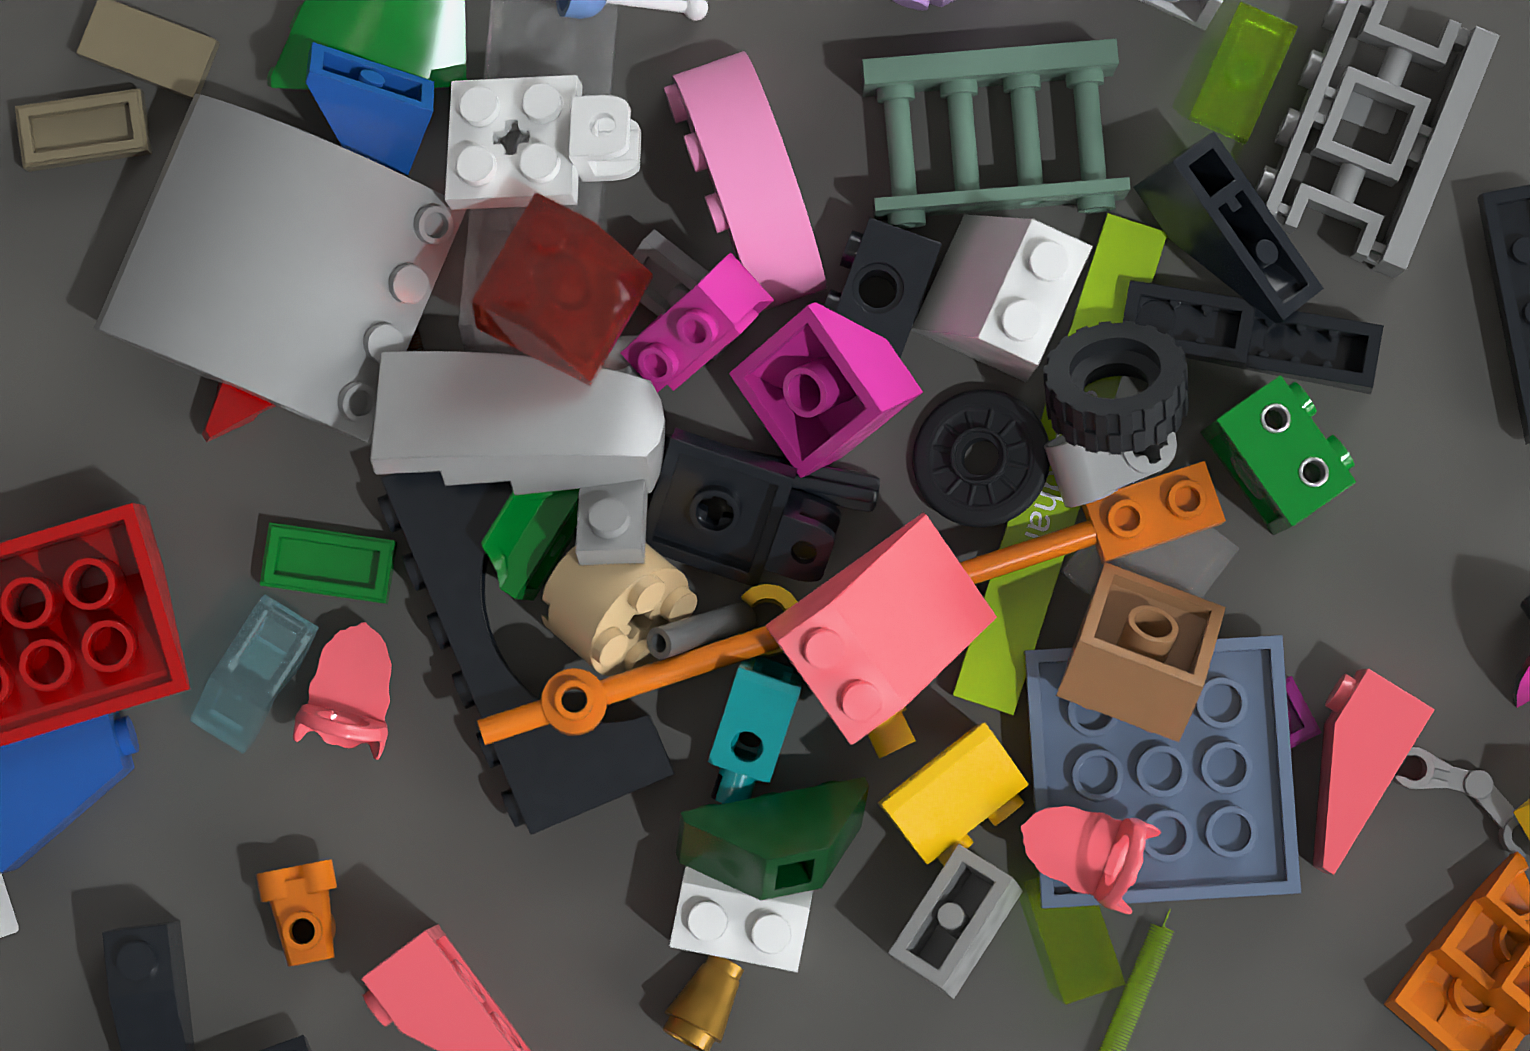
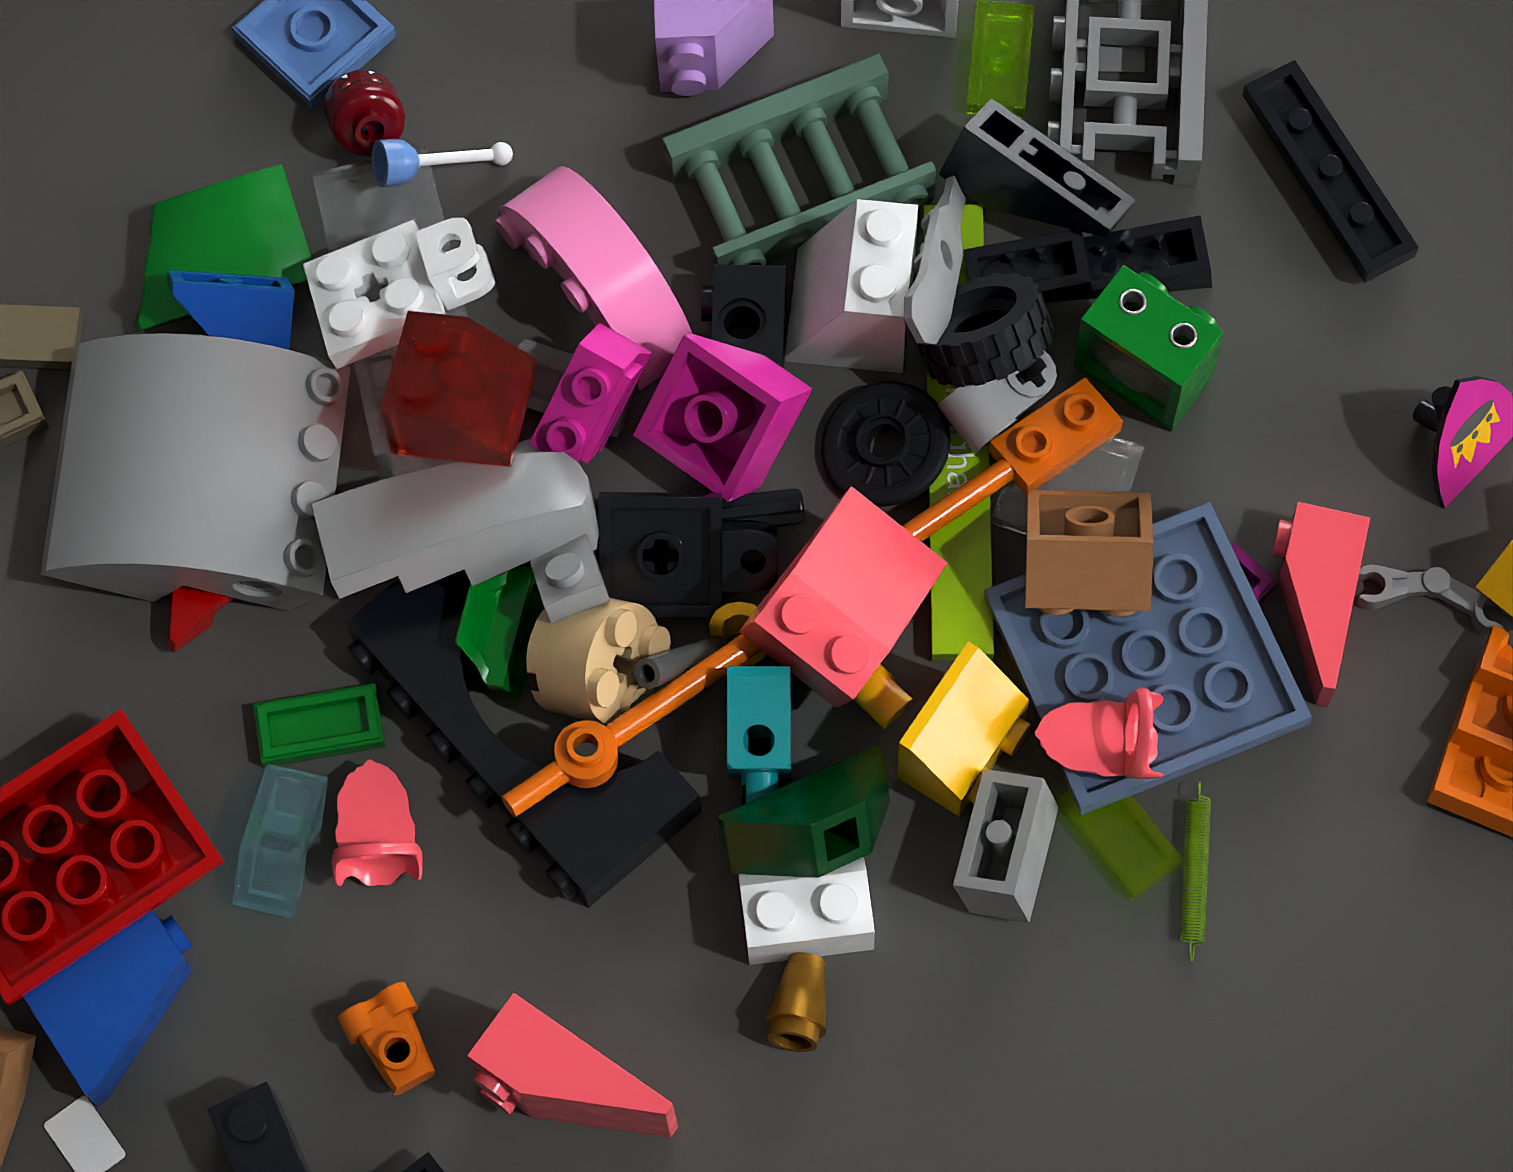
camera: 15 degrees left, 15 degrees down
(1091, 311) = (937, 267): none -> light grey piece

